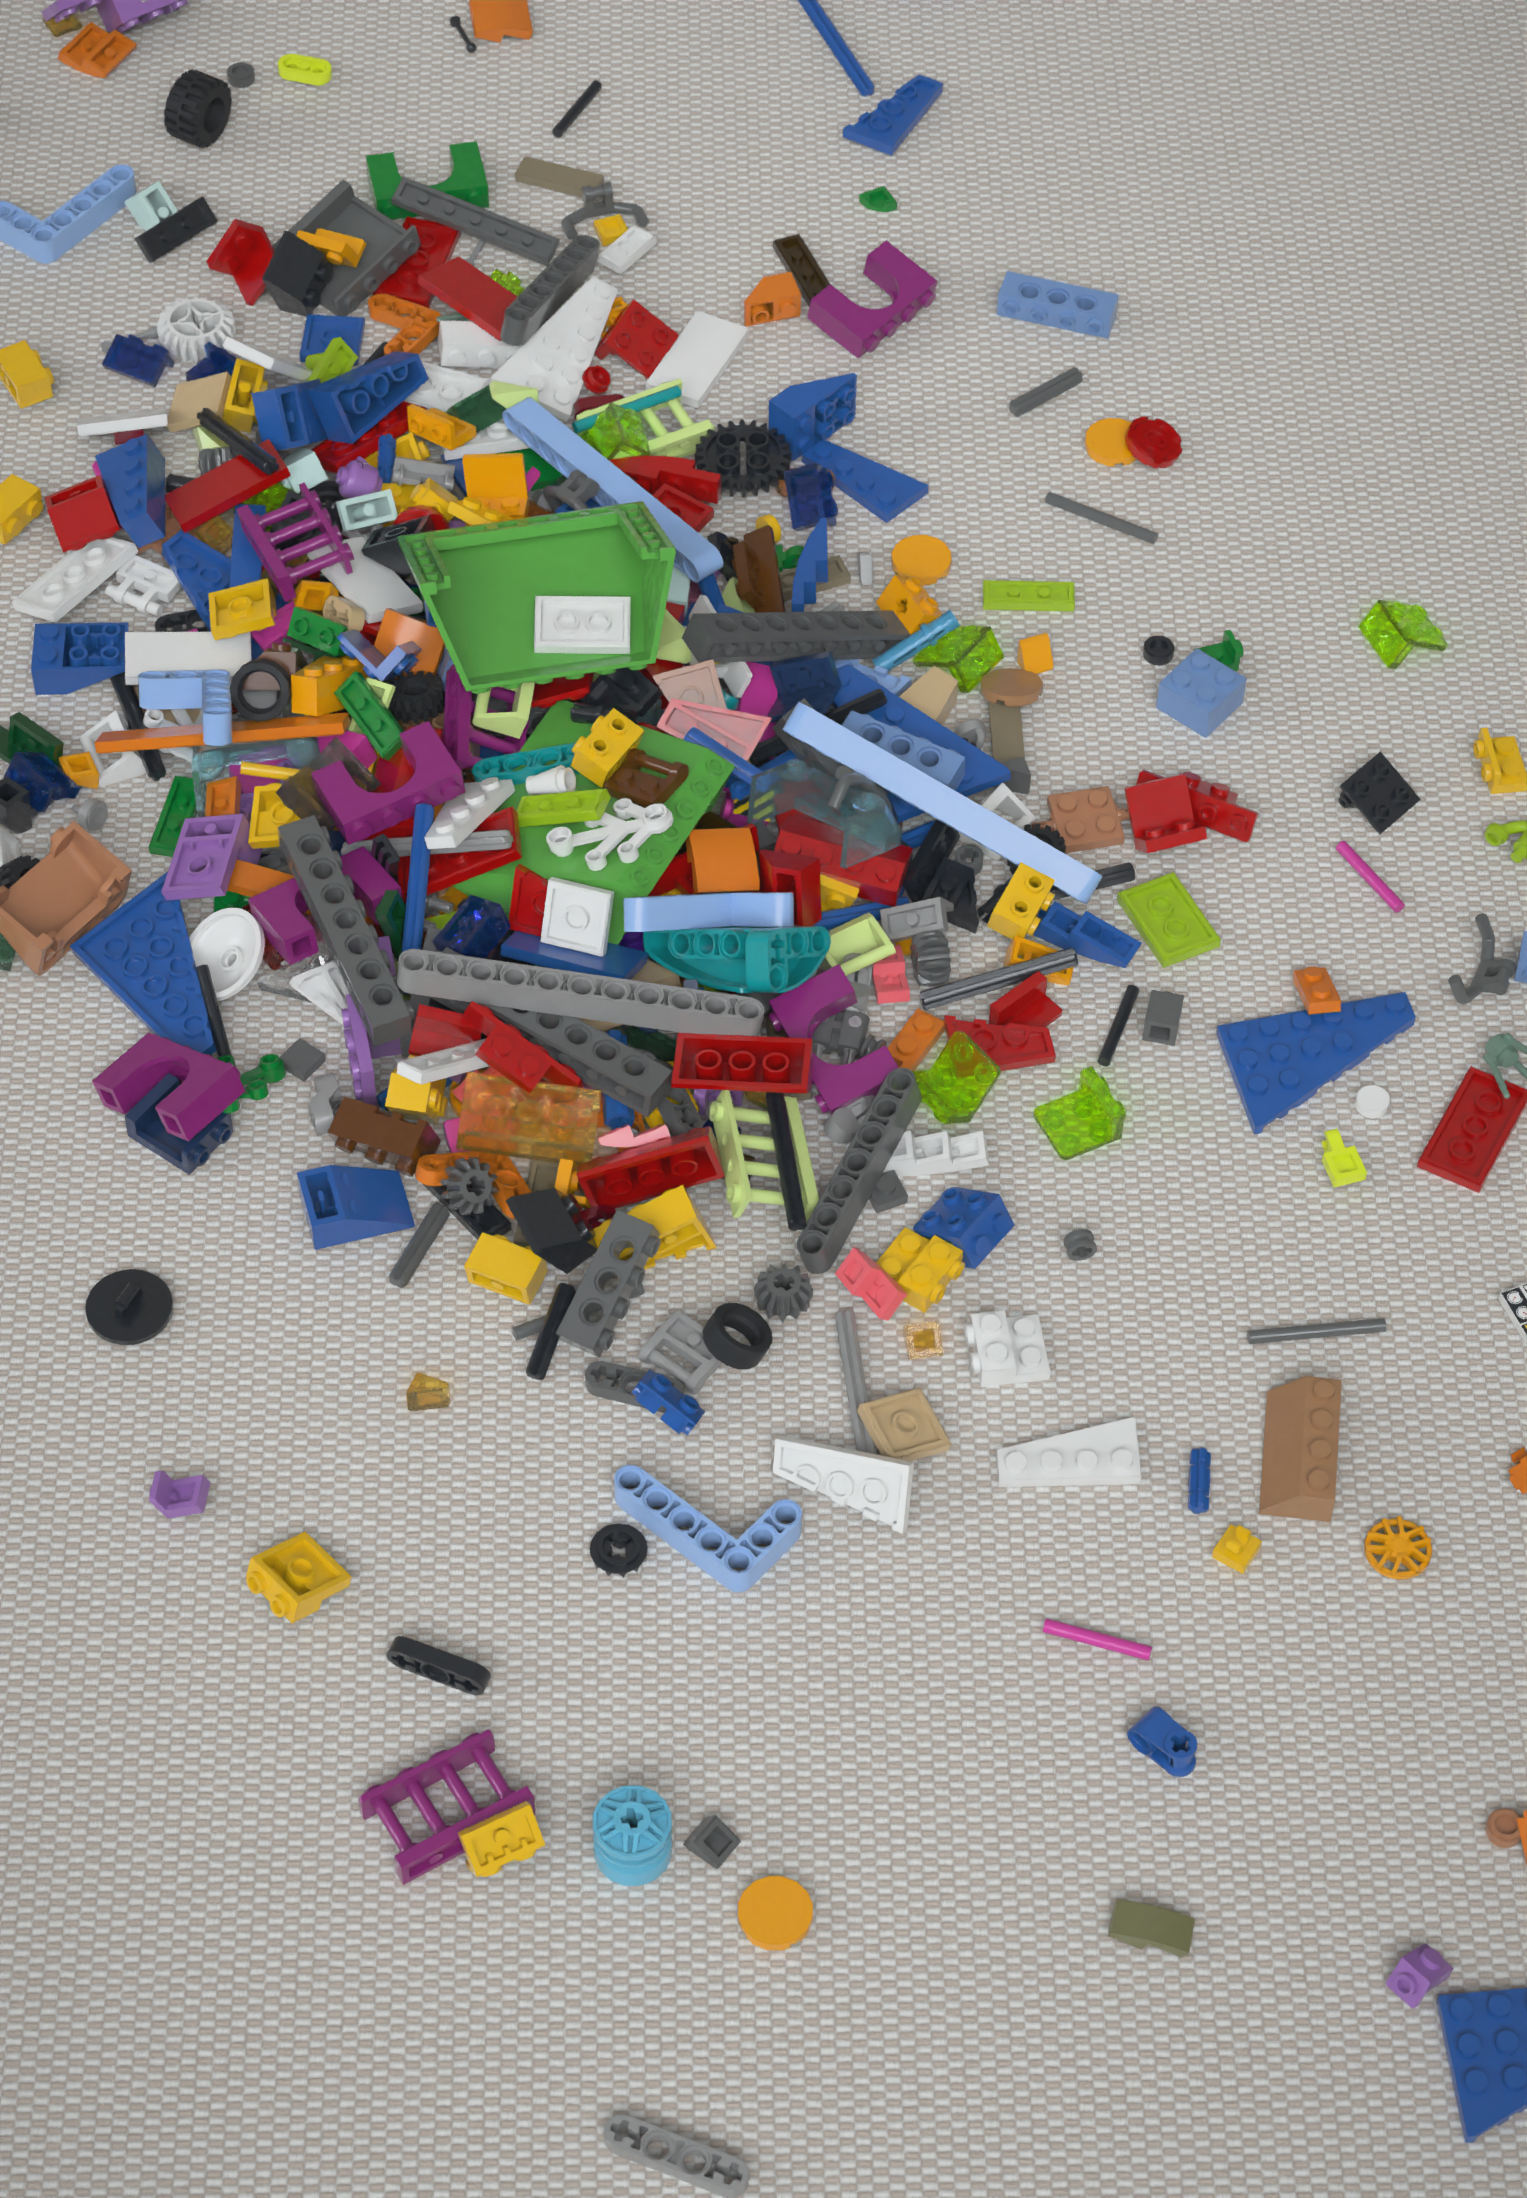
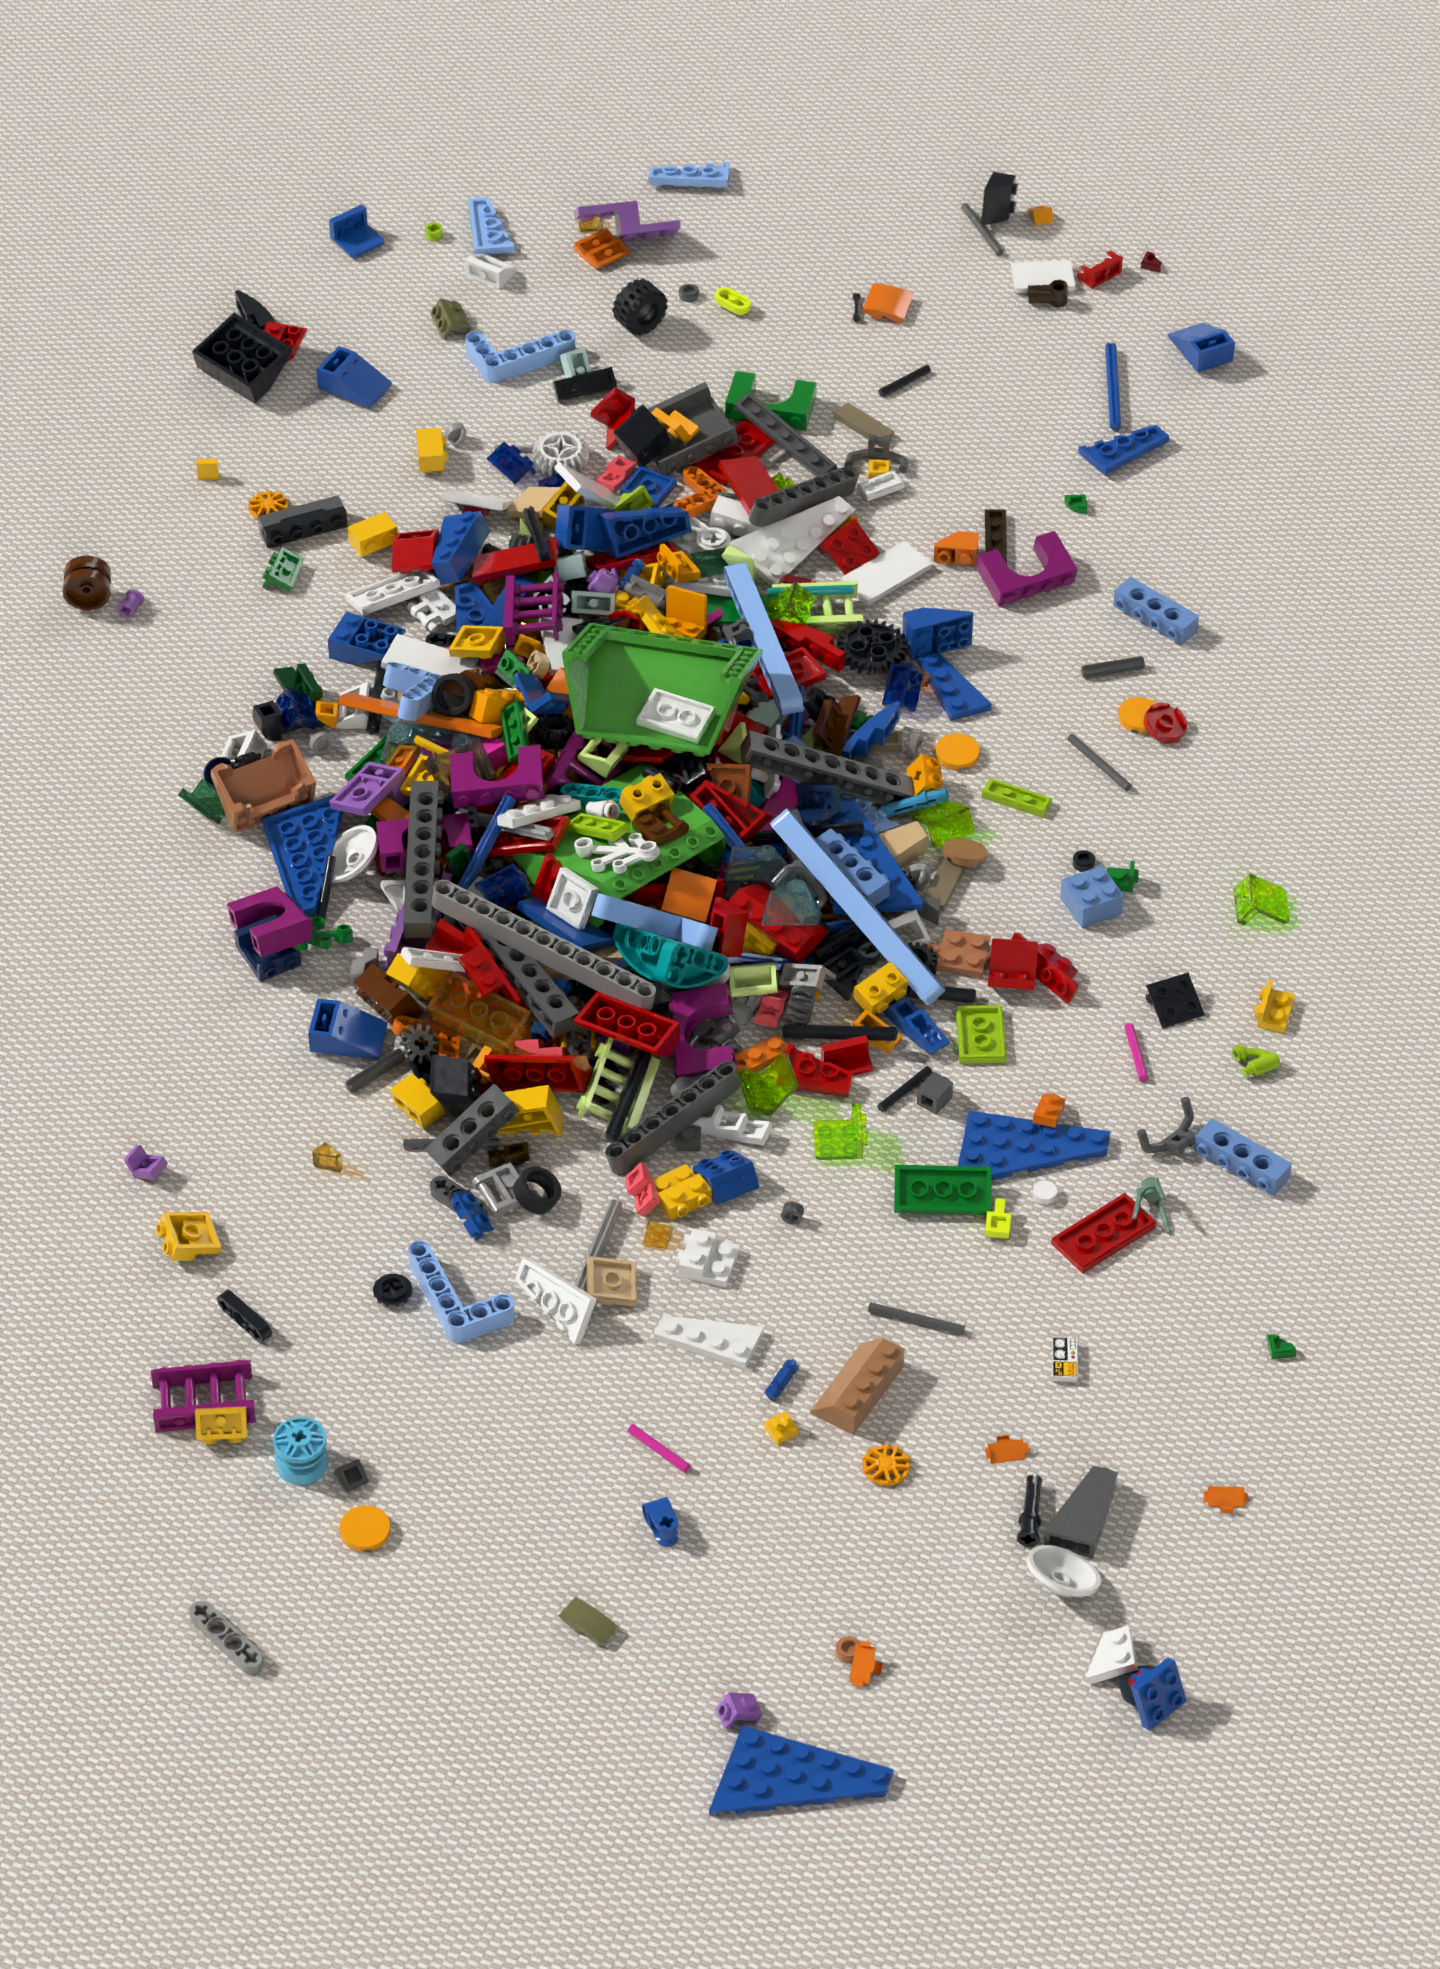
camera: 25 degrees right, 5 degrees down
(42, 341) = (456, 433): none -> light grey tile
(129, 1307) = (178, 1046): black shield -> none
(282, 332) = (617, 473): none -> coral slope
(302, 1059) = (367, 935): dark grey tile -> none
(466, 375) = (706, 535): none -> white gear
(547, 1338) = (418, 1152): black axle -> none
(596, 379) = (807, 566): red plate -> none
(670, 1296) = (513, 1153): none -> dark brown plate
(772, 521) = (864, 704): yellow tile -> none
(783, 1292) = (584, 1175): dark grey gear -> none
(1035, 654) = (995, 836): light orange slope -> none
(1251, 1144) = (942, 1189): none -> green plate

